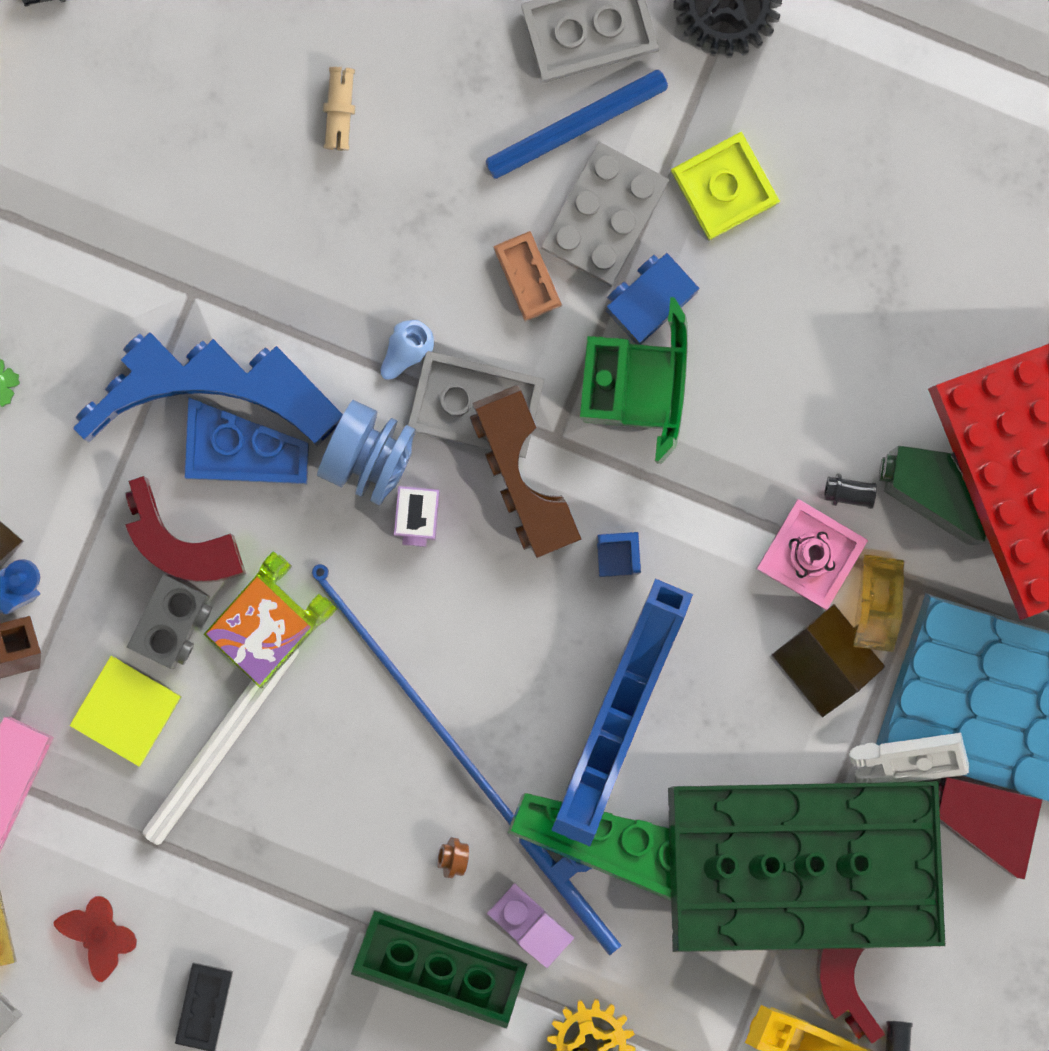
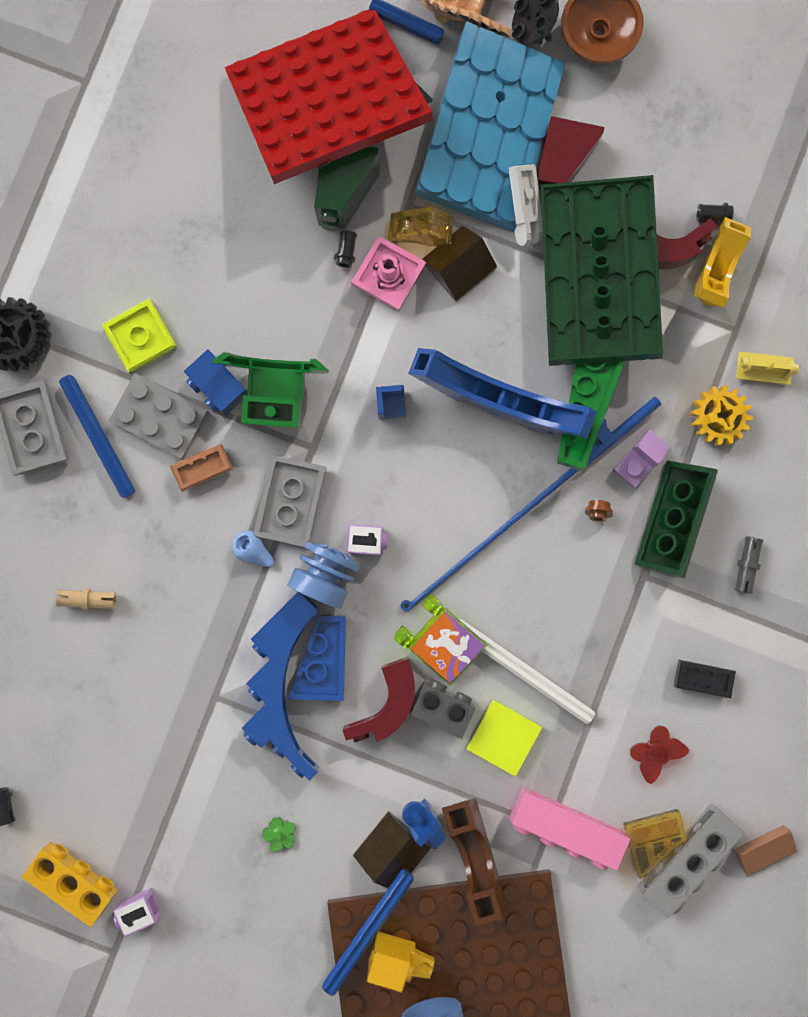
camera: 90 degrees left, 0 degrees up
(544, 518) = (303, 478): reddish brown arch -> none

